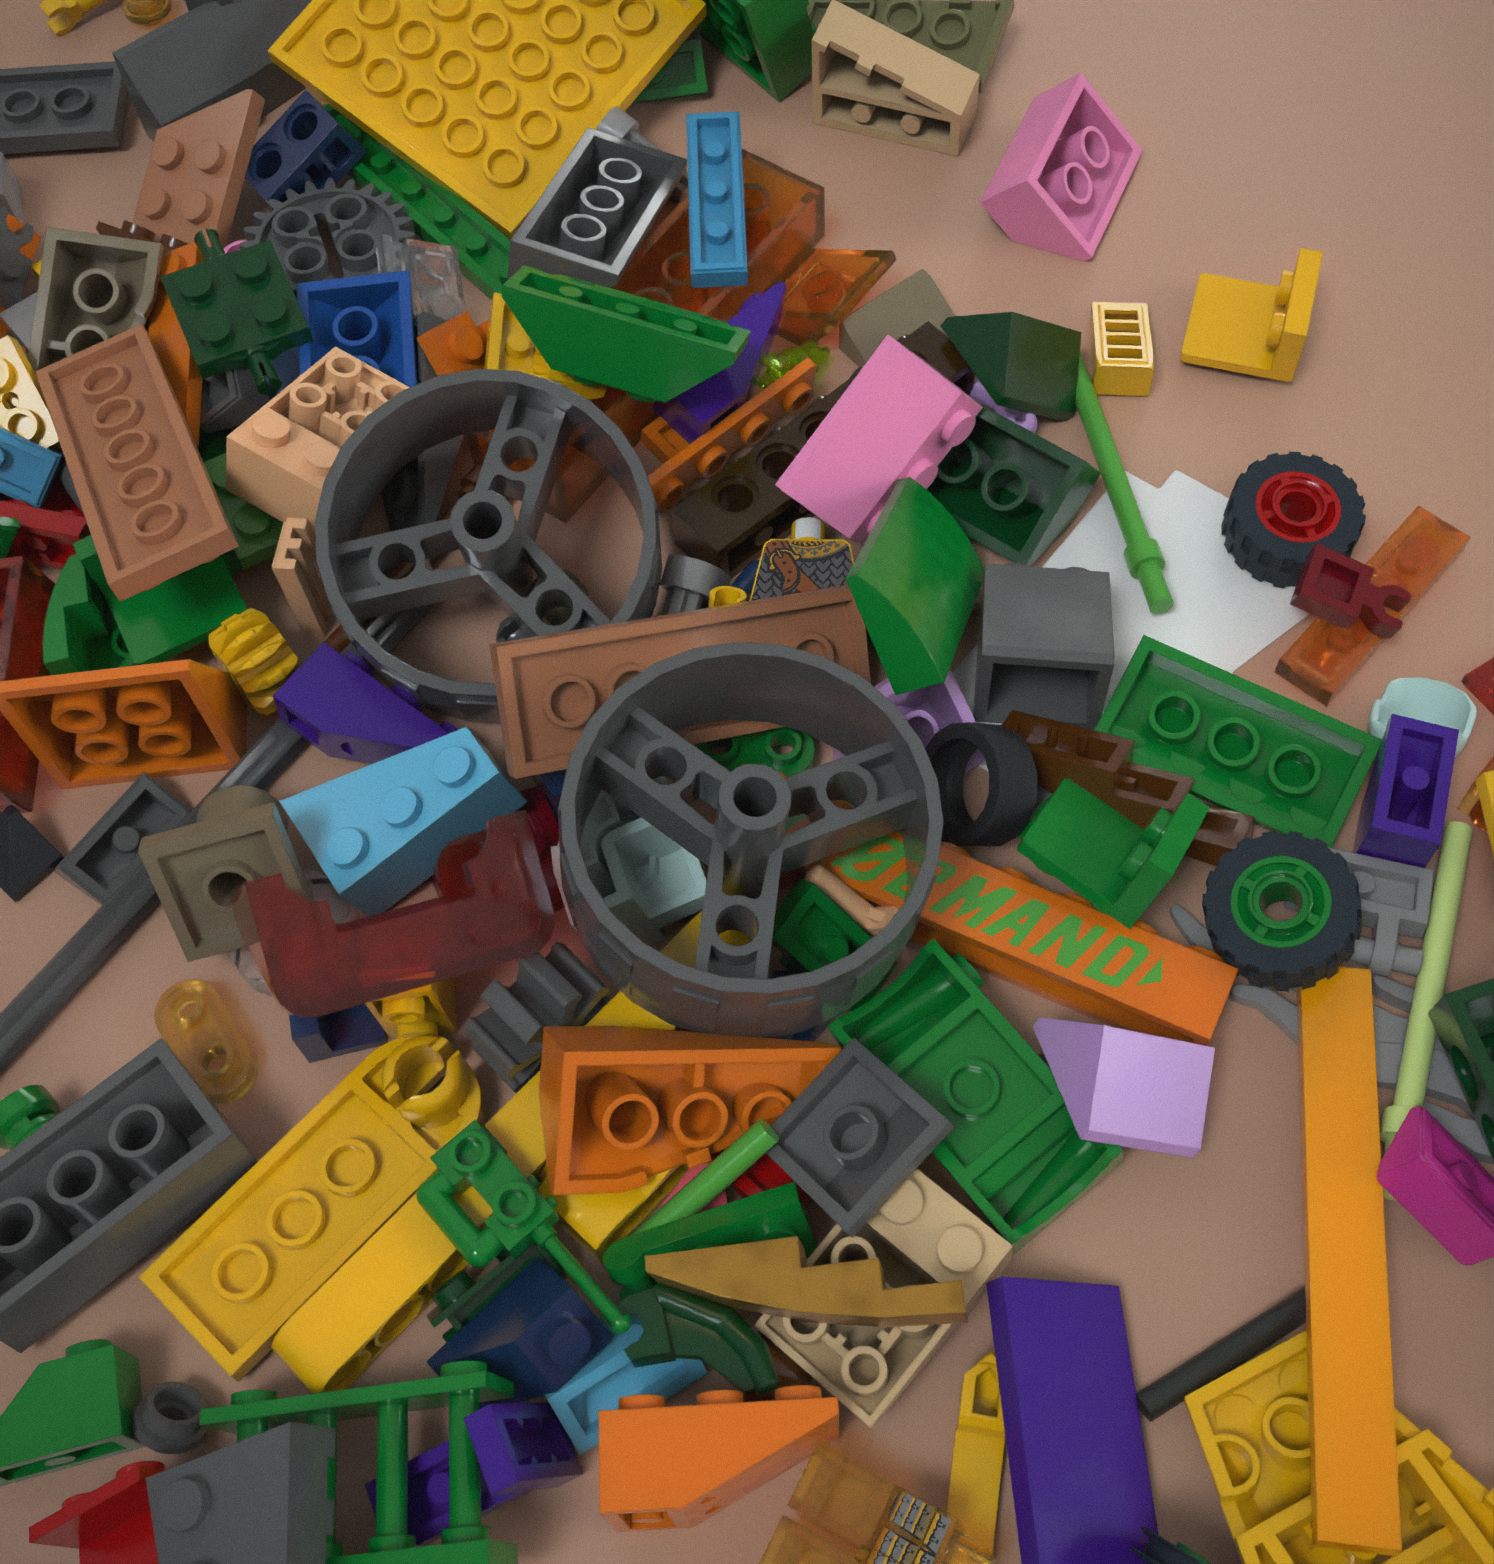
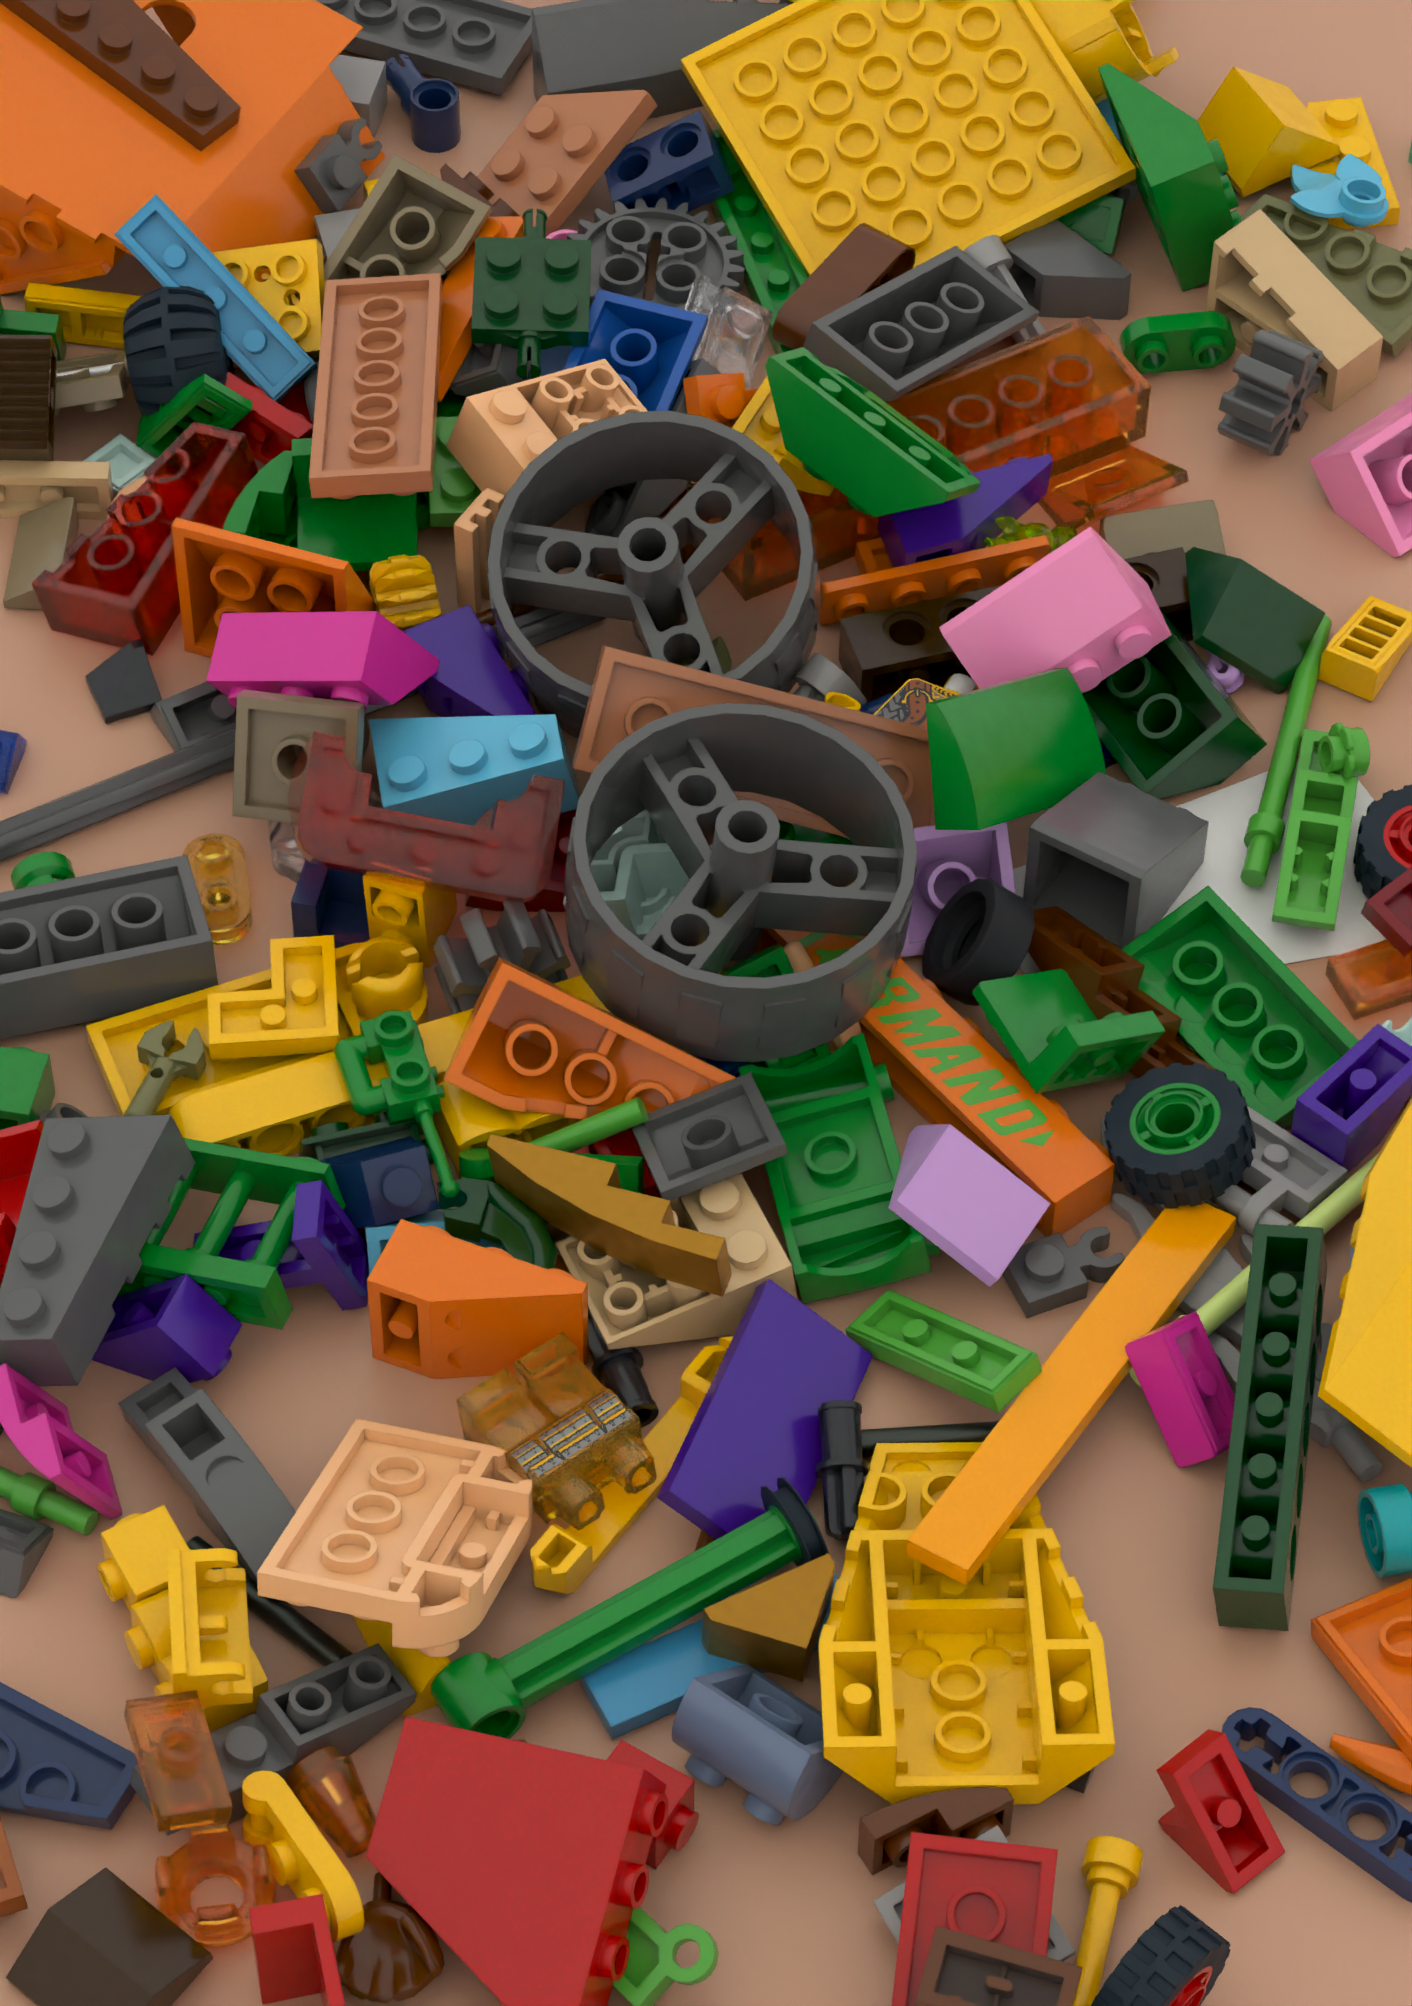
camera: 20 degrees right, 10 degrees down
(58, 175) = (428, 103): none -> dark blue pin
(201, 770) = (318, 656): none -> dark pink slope
(244, 1302) = (163, 1070): none -> olive bar
(352, 1179) = (289, 1018): none -> yellow plate
(512, 186) = (853, 269): none -> reddish brown beam
(663, 110) = (1068, 275): none -> dark grey slope
(716, 200) = (1037, 358): dark azure tile -> none
(811, 140) = (1178, 342): none -> green plate
(893, 1446) = (622, 1374): none -> black axle
(916, 155) = (1270, 392): none -> dark grey gear
(1172, 1450) = (841, 1465): none -> black axle
(1179, 454) = (1344, 751): none -> bright green plate
(1194, 541) = (1314, 842): none -> bright green slope
(1196, 1258) = (944, 1350): none -> bright green tile
(1233, 1097) = (1054, 1275): none -> dark grey plate

